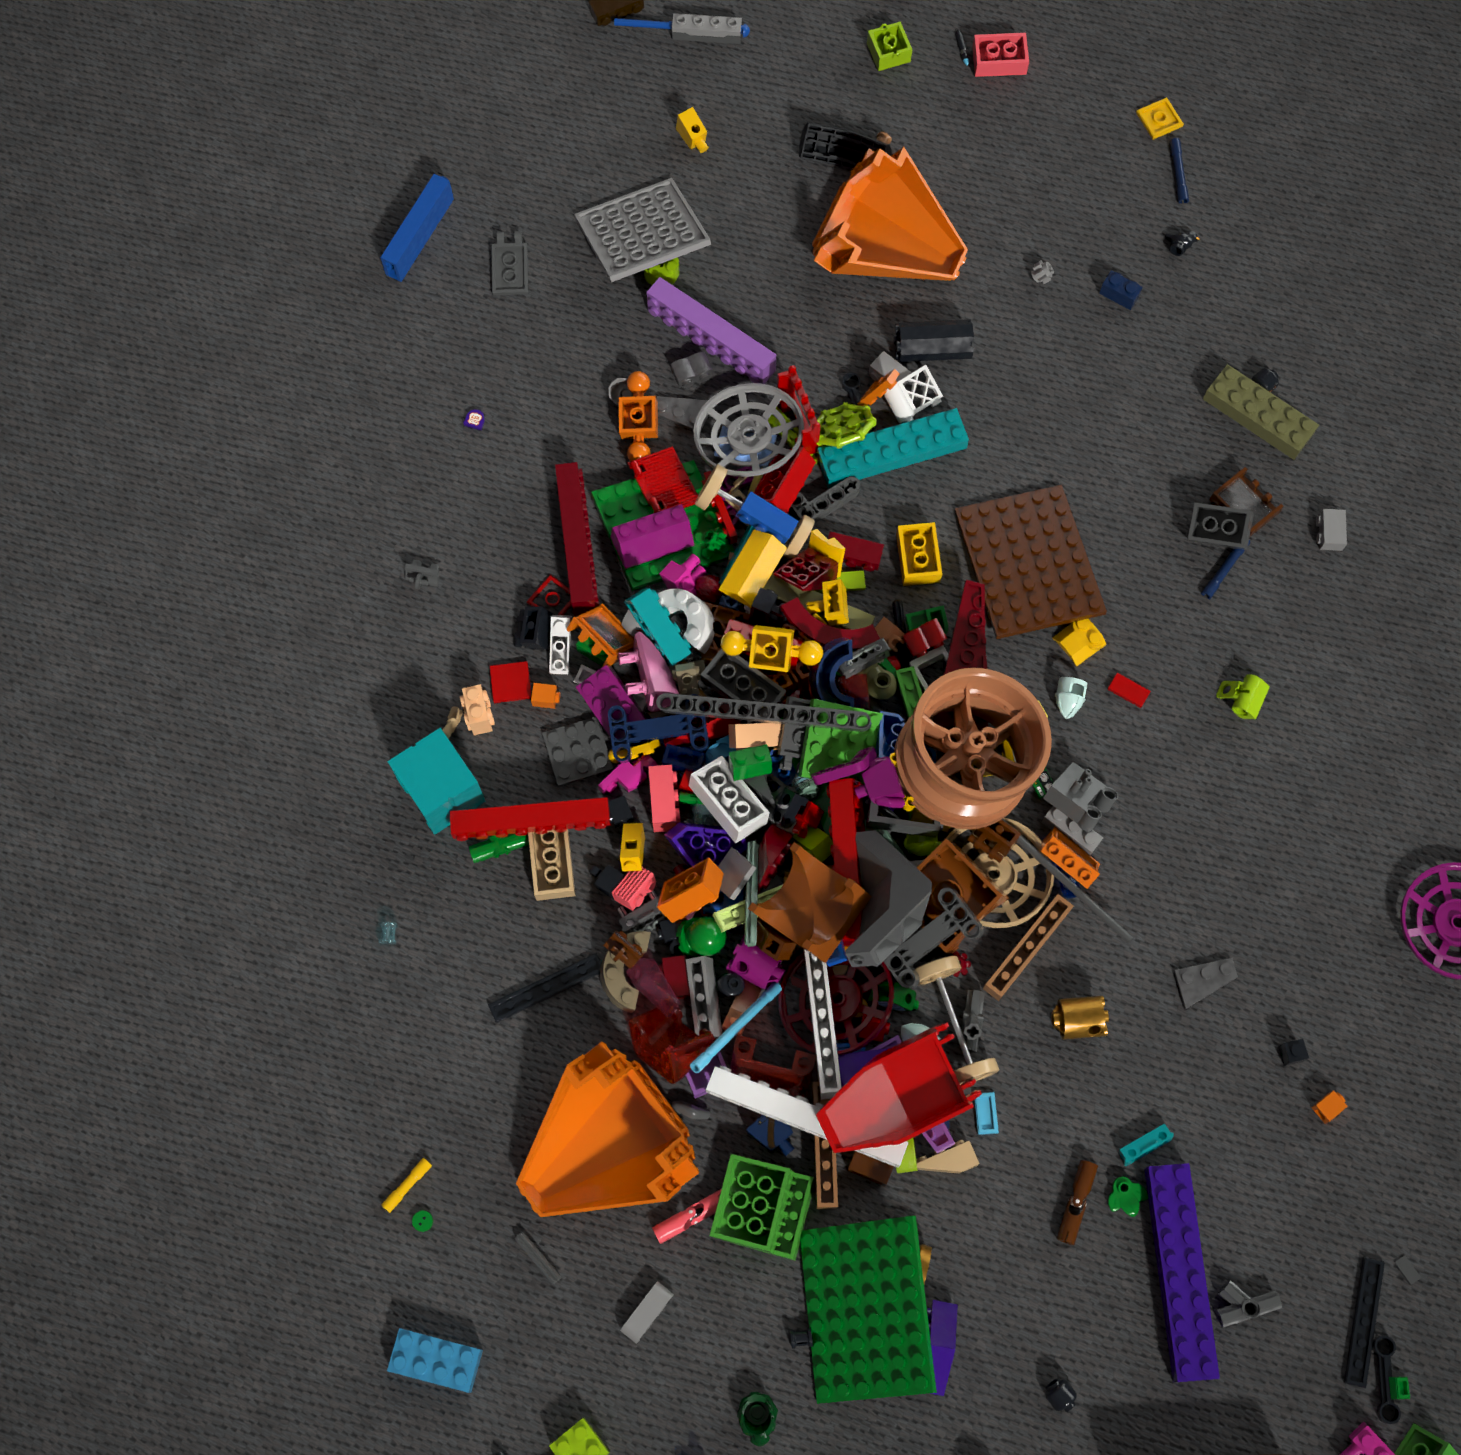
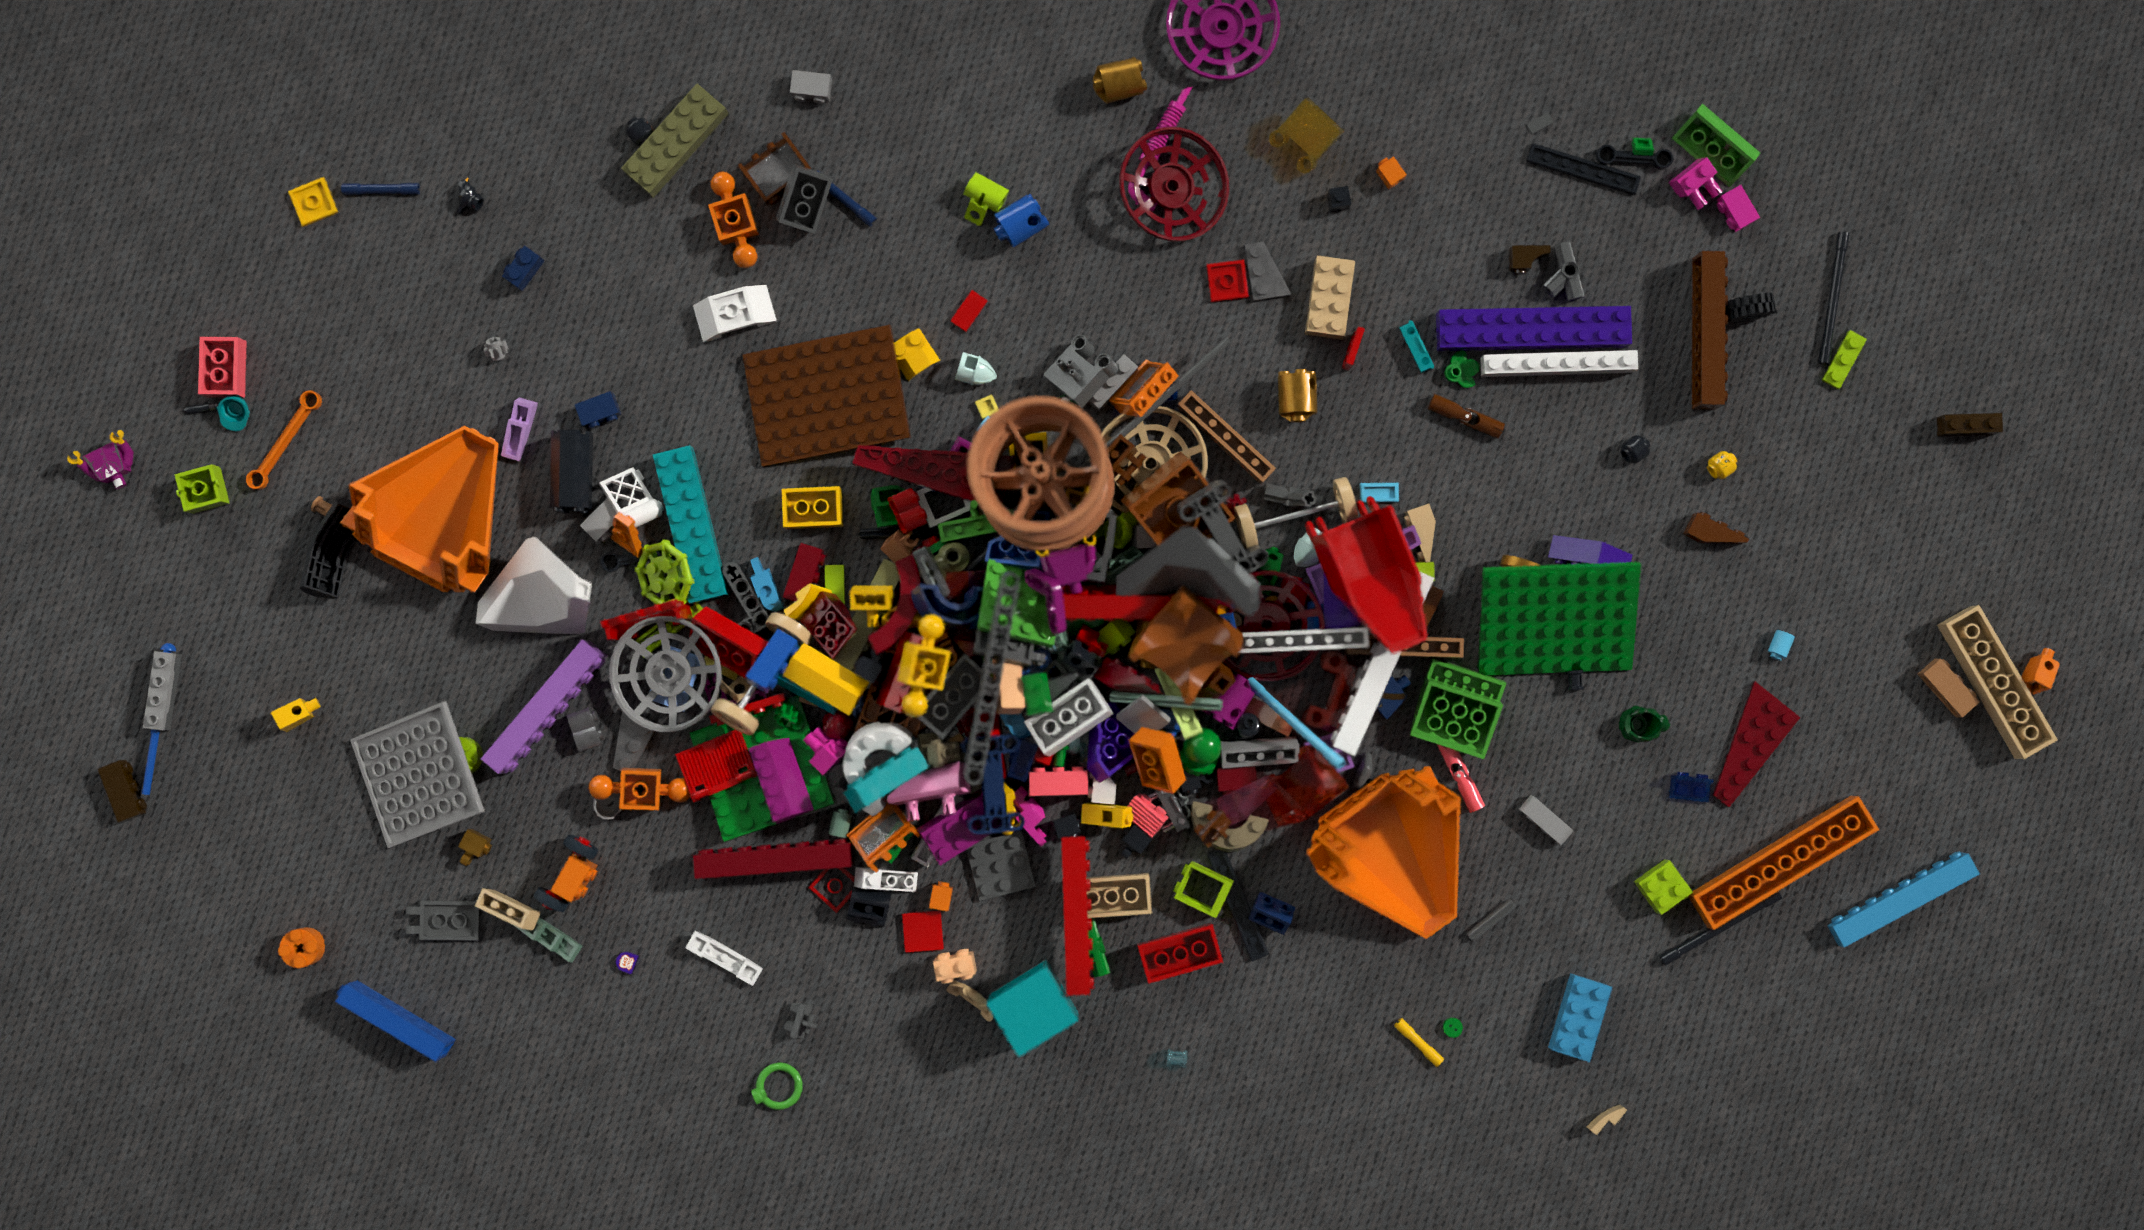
camera: 85 degrees left, 15 degrees up
(328, 1401) = (1612, 1115): none -> tan slope
(351, 542) = (759, 1093): none -> bright green piece
(482, 150) = (291, 947): none -> orange brick
(482, 502) = (724, 957): none -> white slope
(495, 929) = (1180, 953): none -> red brick
(500, 347) = (553, 939): none -> sand green slope
(521, 312) = (508, 909): none -> tan brick
(538, 1020) = (1272, 913): none -> dark blue brick
(553, 365) = (573, 878): none -> brick
(553, 967) = (1180, 886): none -> lime window
(579, 284) = (474, 844): none -> pearl gold brick
(613, 598) = (840, 823): none -> sand green brick
(656, 845) = (1102, 792): none -> white slope
(814, 315) = (535, 595): none -> white panel
(839, 517) = (765, 587): none -> dark azure piece
(939, 109) = (284, 440): none -> orange piece
(960, 66) = (233, 413): none -> teal hat
(970, 296) = (518, 428): none -> lavender slope
(994, 362) = (597, 410): none -> dark blue brick
(1104, 475) = (734, 311): none -> white slope
(1136, 1073) = (1353, 348): none -> red tile
(1146, 1303) = (1559, 363): none -> white brick
(1187, 1048) = (1330, 297): none -> tan brick
(1191, 467) = (722, 213): none -> orange brick
(1191, 943) = (1227, 280): none -> red tile
(1221, 724) = (1020, 221): none -> blue cylinder
(1258, 1257) = (1522, 257): none -> dark brown arch
(1296, 874) = (1180, 176): none -> dark red dish
(1318, 859) = (1170, 119): none -> dark pink piece
(1361, 1016) = (1310, 130): none -> clear yellow piece
(1384, 818) = (1119, 80): none -> pearl gold cylinder

